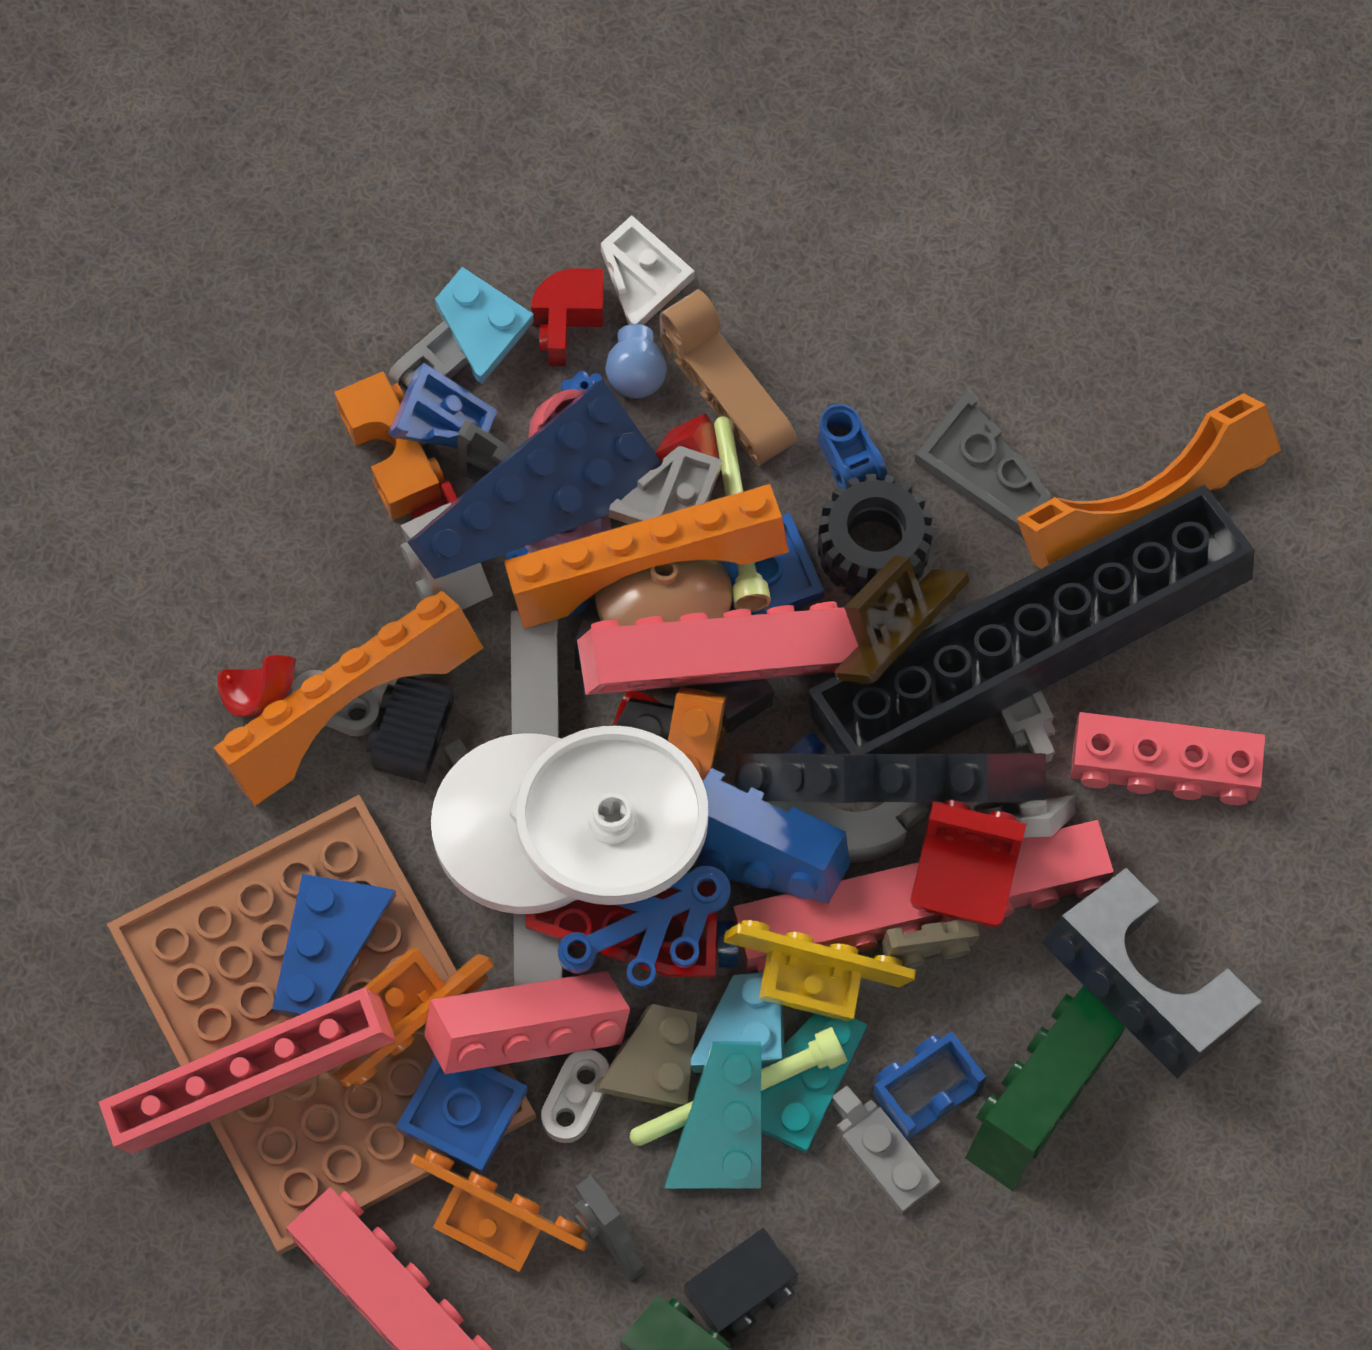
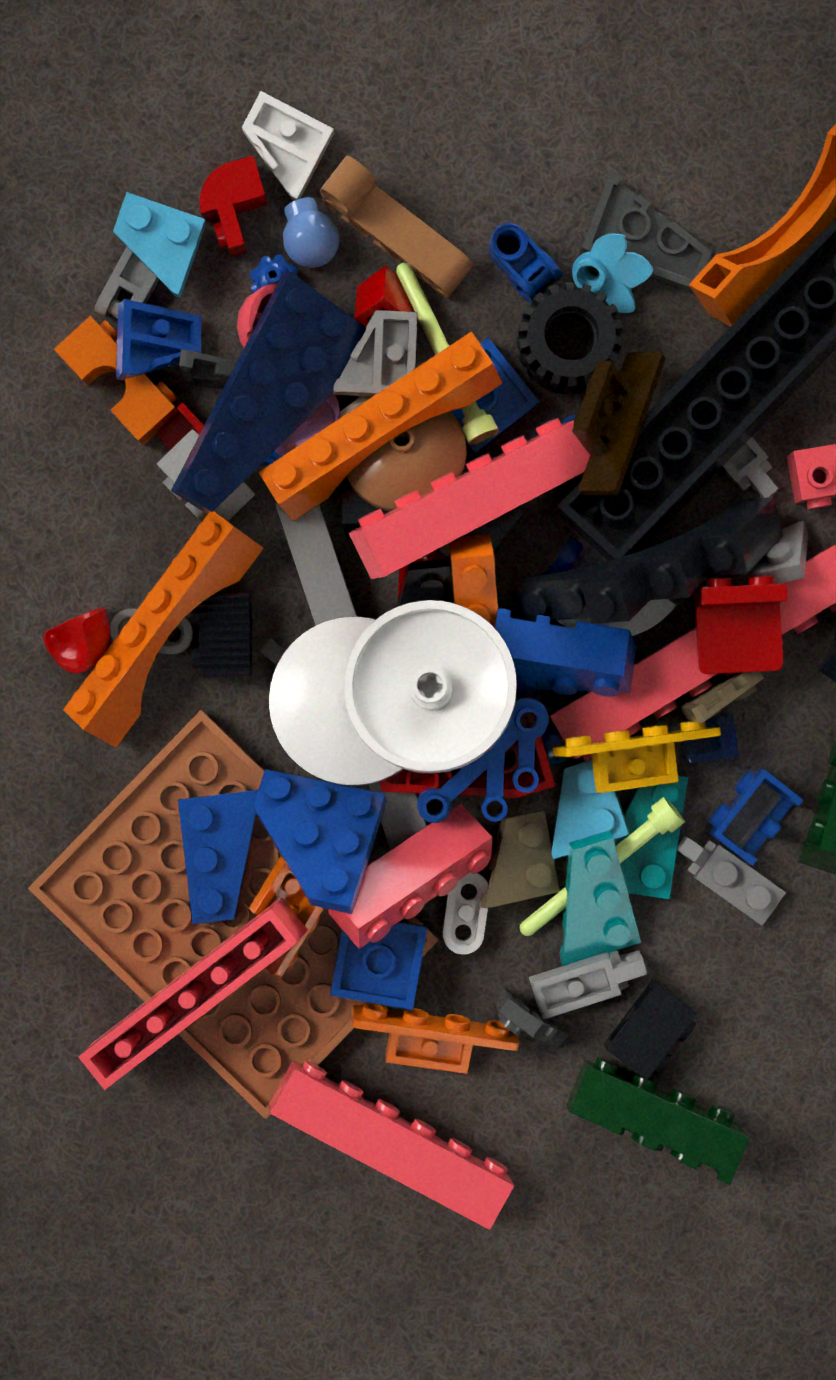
camera: 20 degrees left, 20 degrees up
(445, 944) = (321, 833): none -> blue plate
(683, 1211) = (585, 982): none -> light grey hinge
(907, 1001) = (713, 747): none -> panel
(946, 485) = (617, 271): none -> medium azure plate

